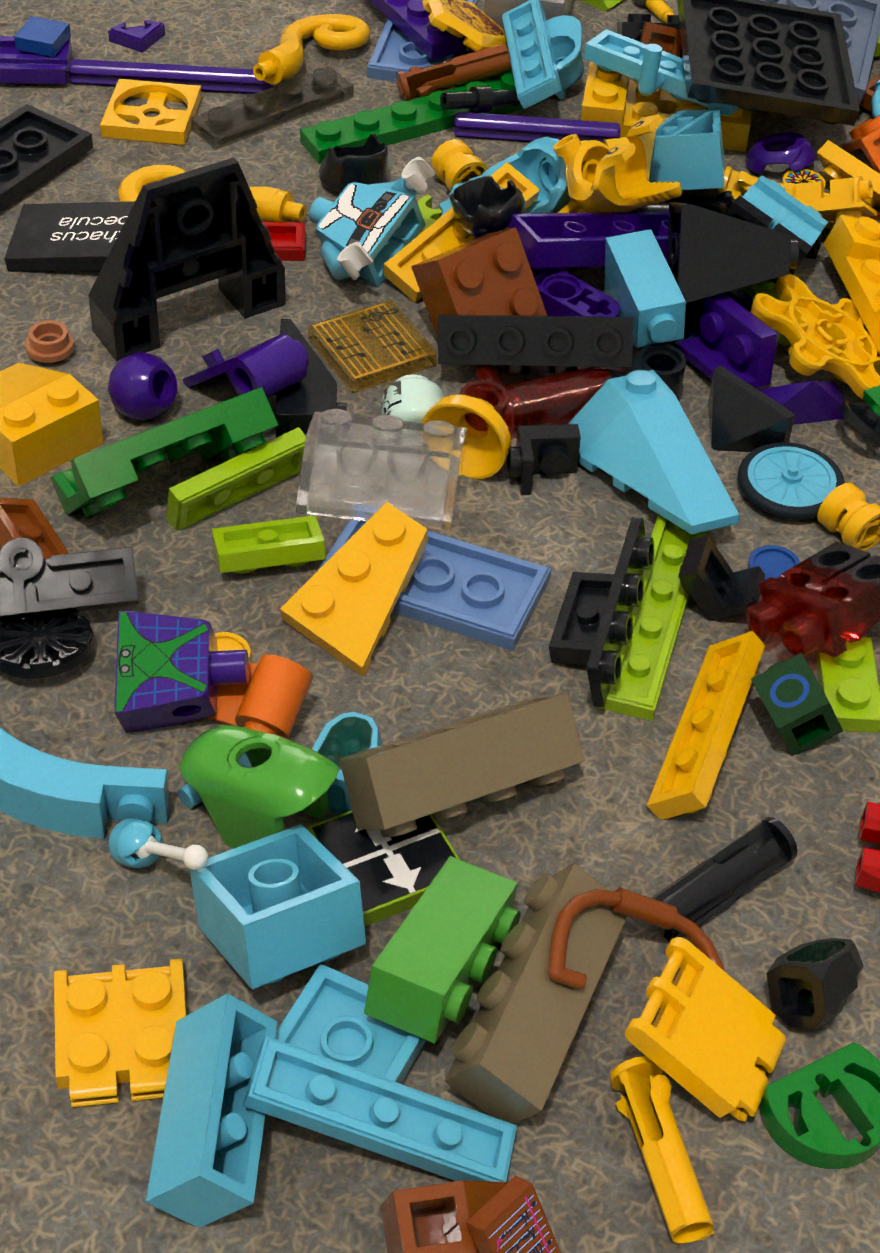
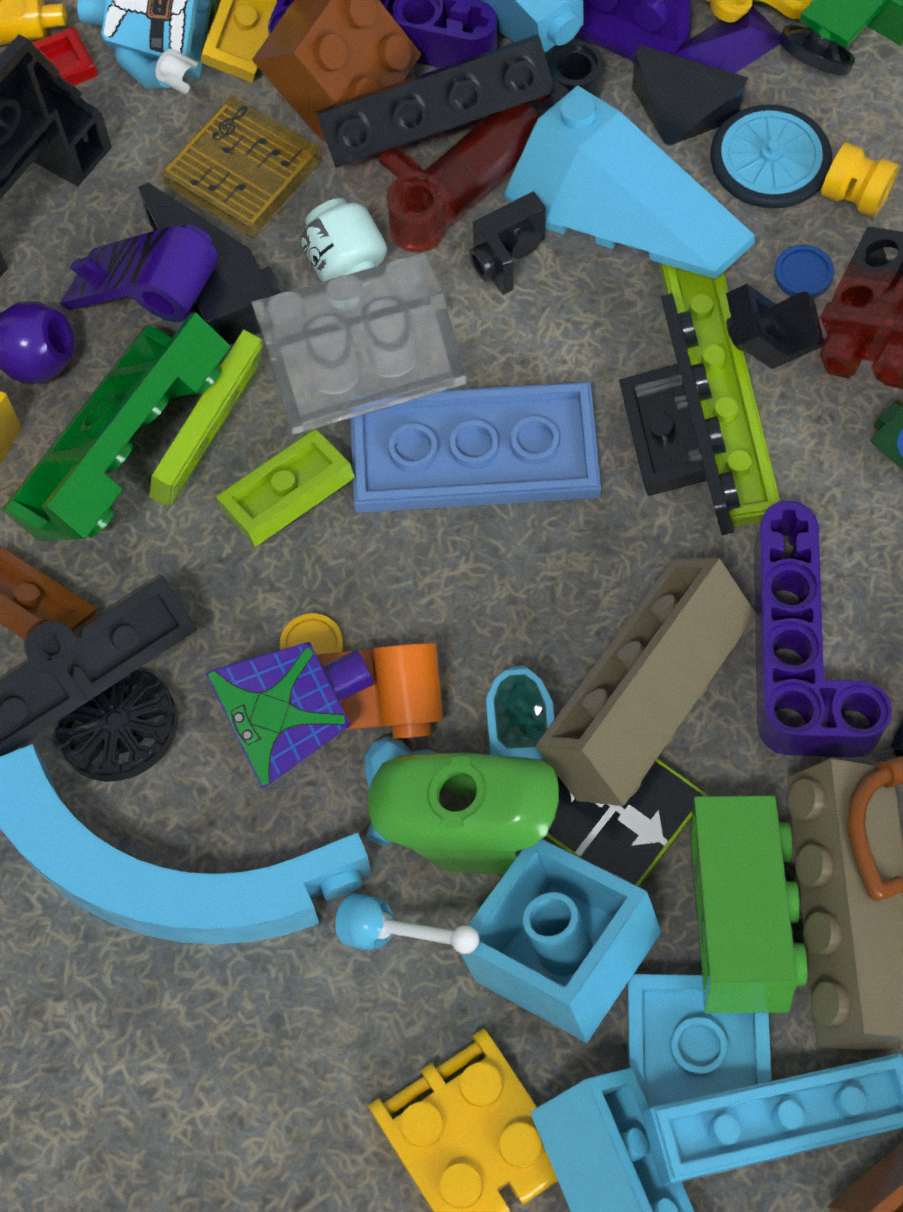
camera: 20 degrees left, 20 degrees up
(355, 591) = (414, 502): yellow wing -> none
(483, 449) = (445, 243): yellow piece -> none
(590, 813) = (800, 630): none -> dark purple beam
(706, 727) = (846, 508): yellow plate -> none

